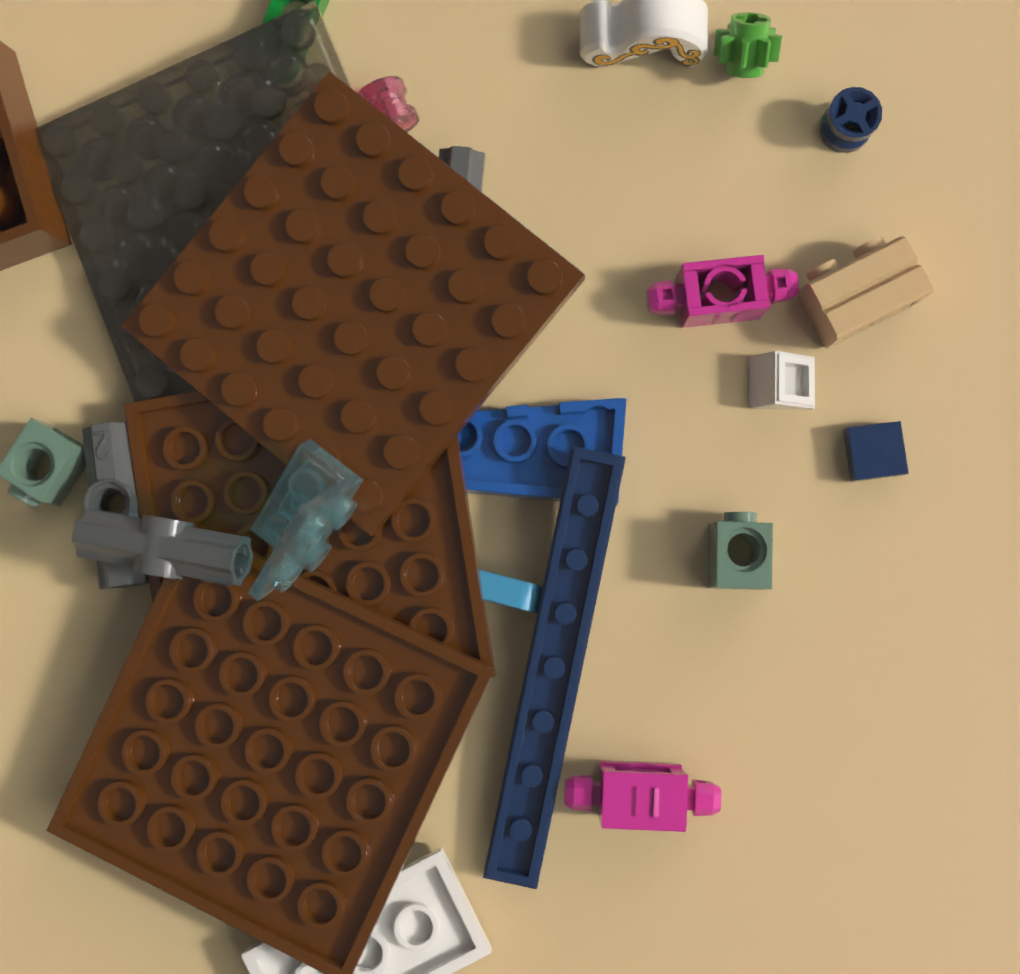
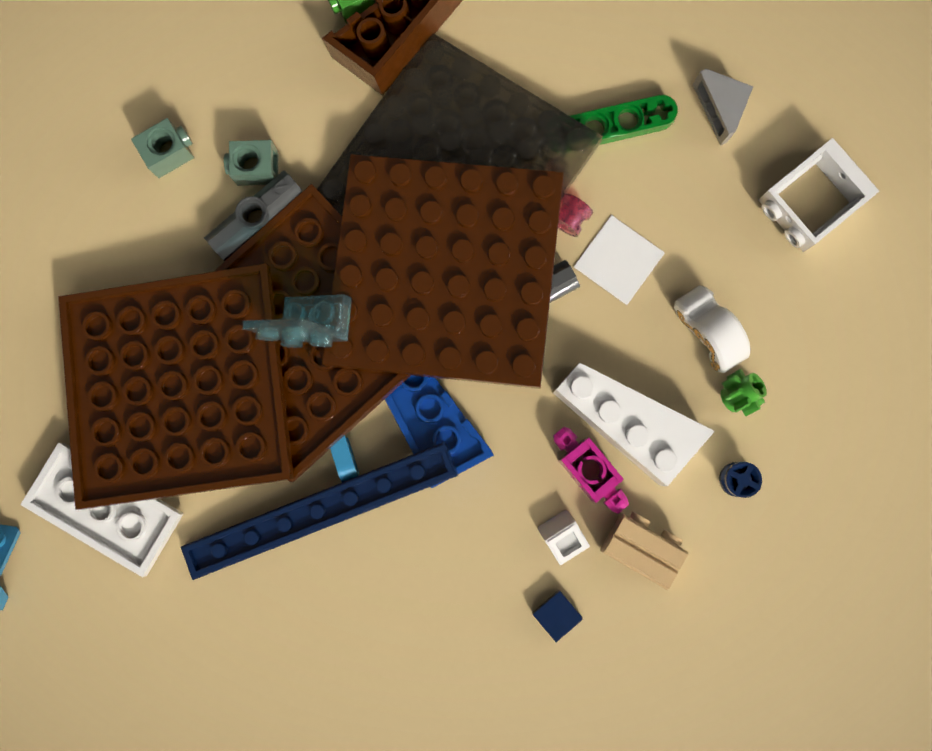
camera: 60 degrees right, 0 degrees up
(163, 547) = (243, 258): dark grey piece -> none
(481, 91) = (619, 260): none -> white sticker
(642, 796) = (278, 606): dark pink piece -> none
(703, 200) = (636, 425): none -> white wedge
(725, 573) = (436, 586): sand green brick -> none

